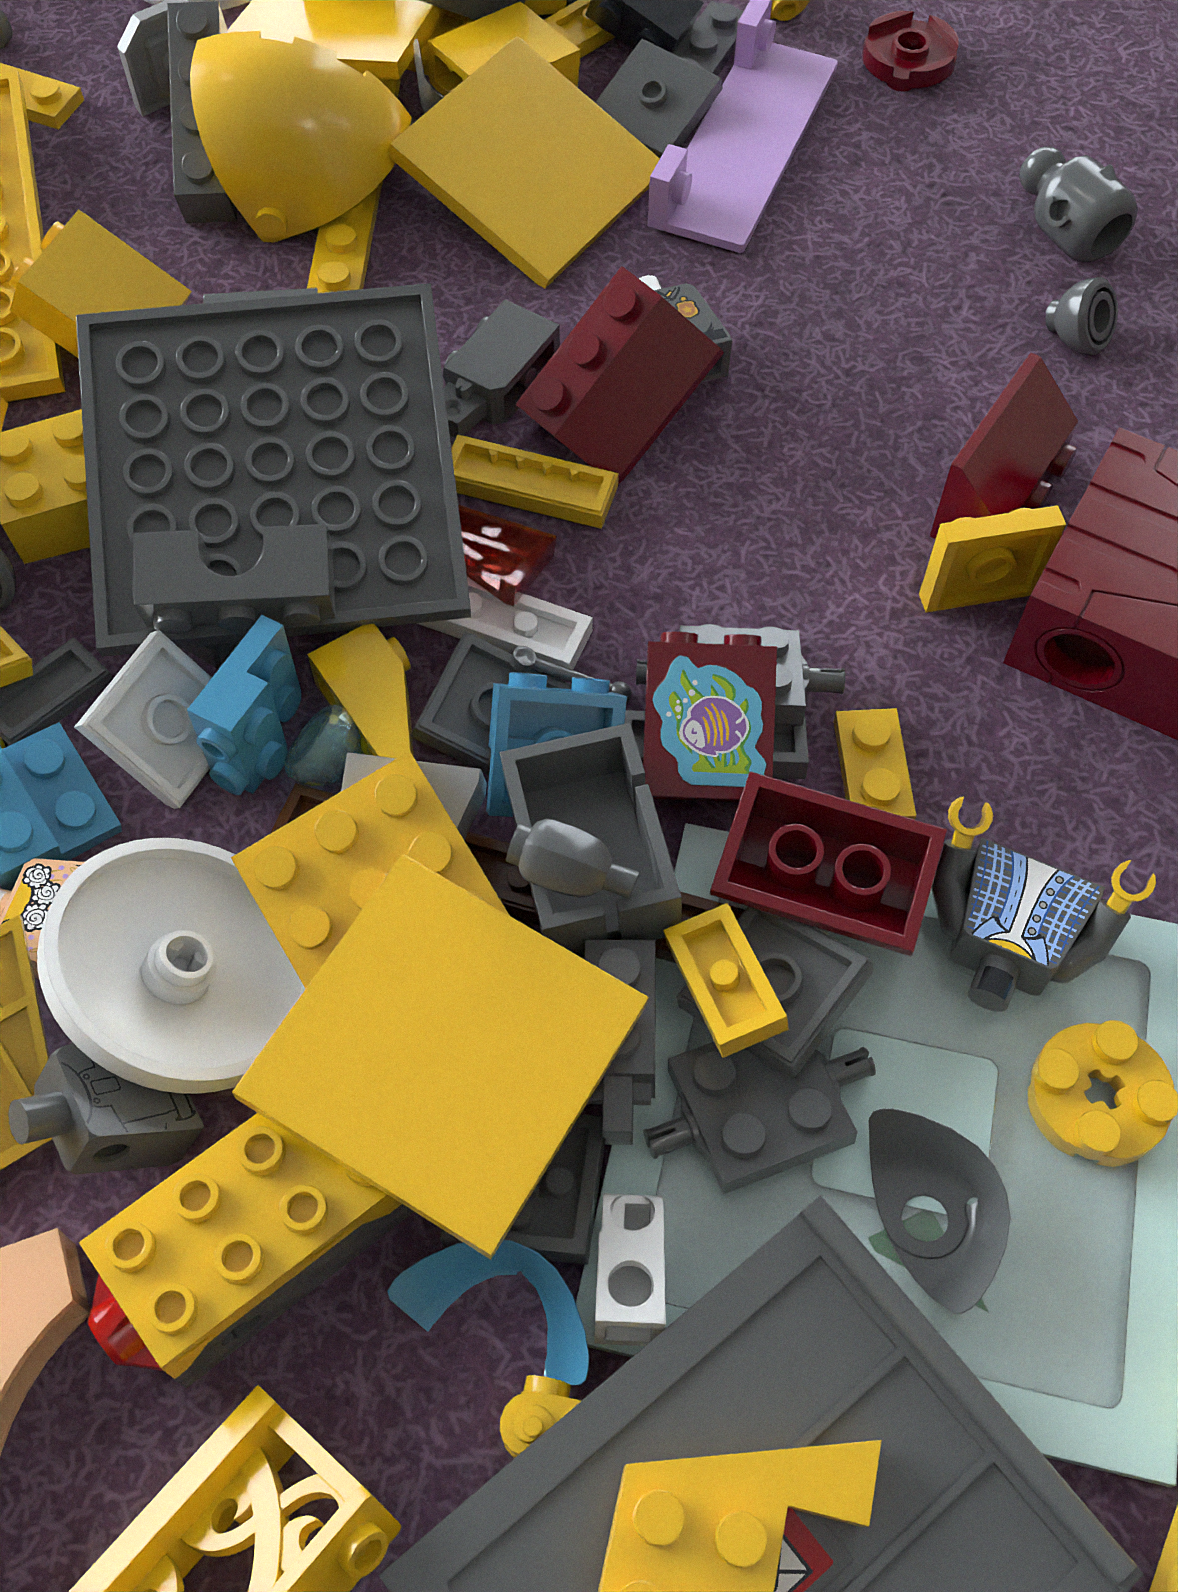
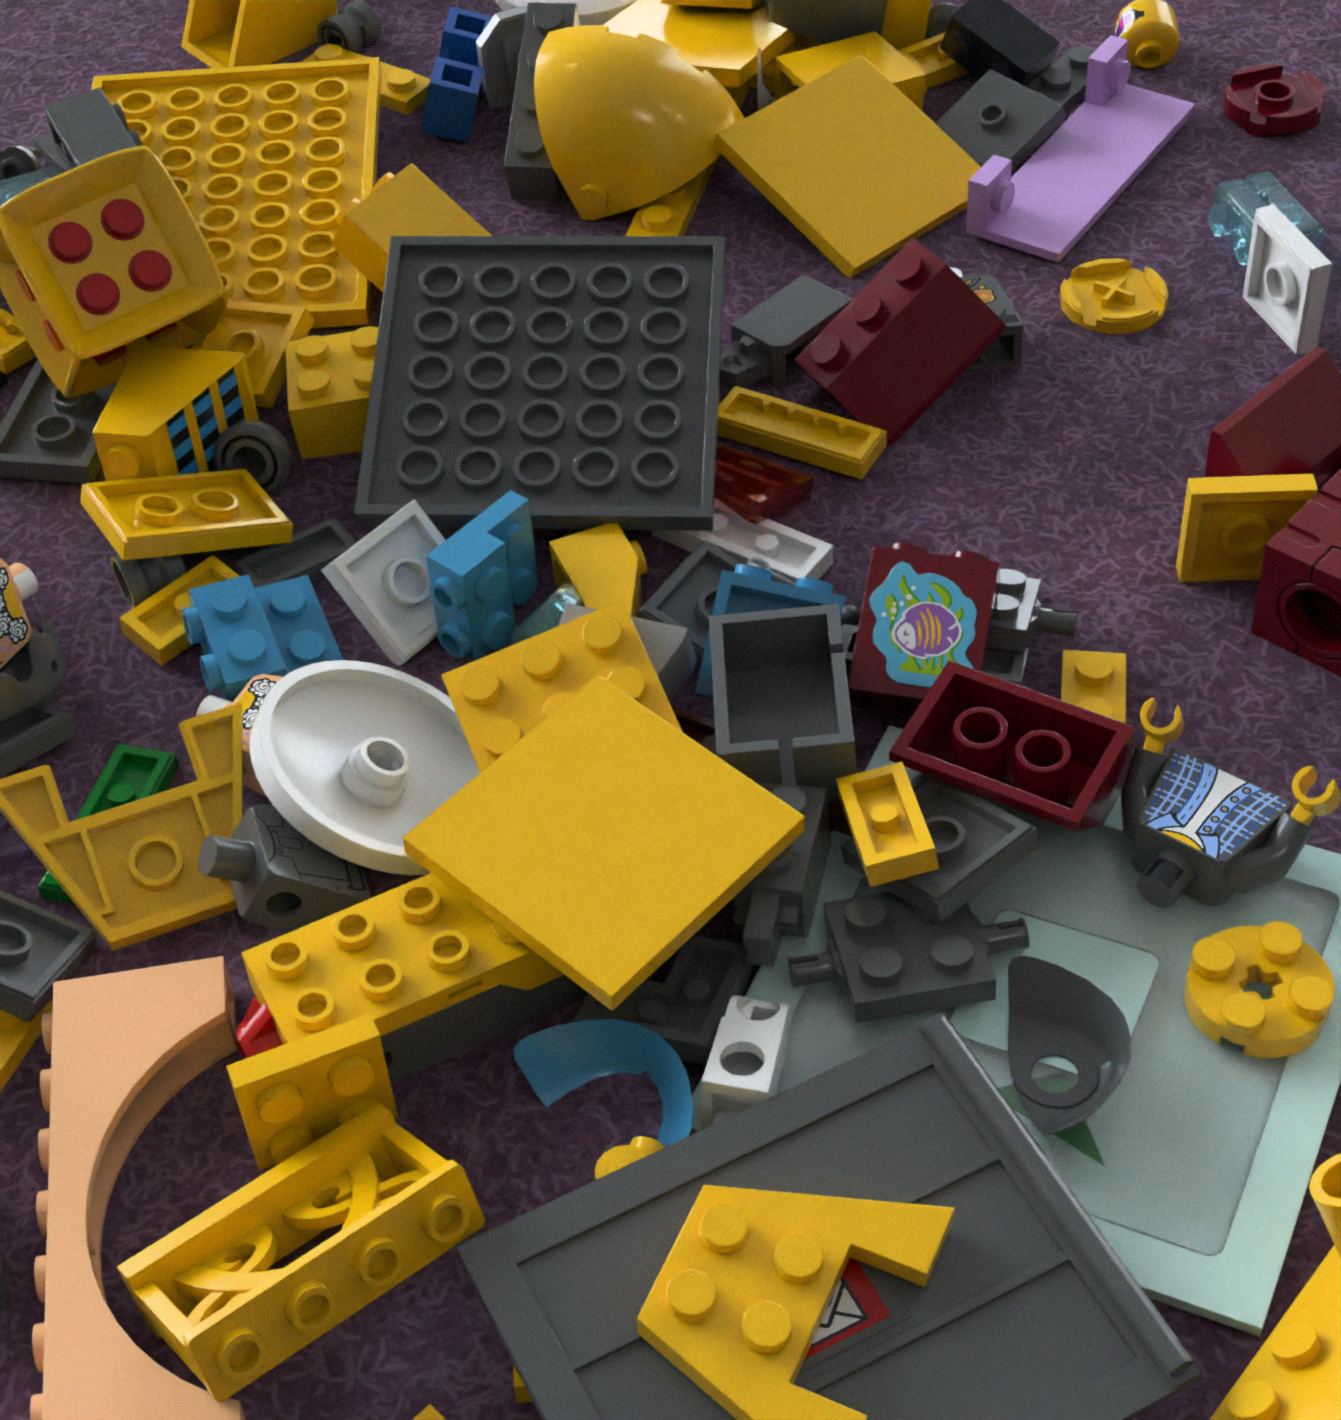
camera: 15 degrees right, 15 degrees down
(103, 85) = (455, 78): none -> blue arch
(164, 1407) = (310, 1088): none -> yellow plate
(286, 584) = (443, 467): dark grey arch -> none
(567, 860) = (750, 696): dark grey plant -> none
(802, 288) = (1113, 296): none -> yellow tile
(932, 196) = (1236, 206): none -> clear light blue brick
(971, 263) = (1286, 279): none -> white tile

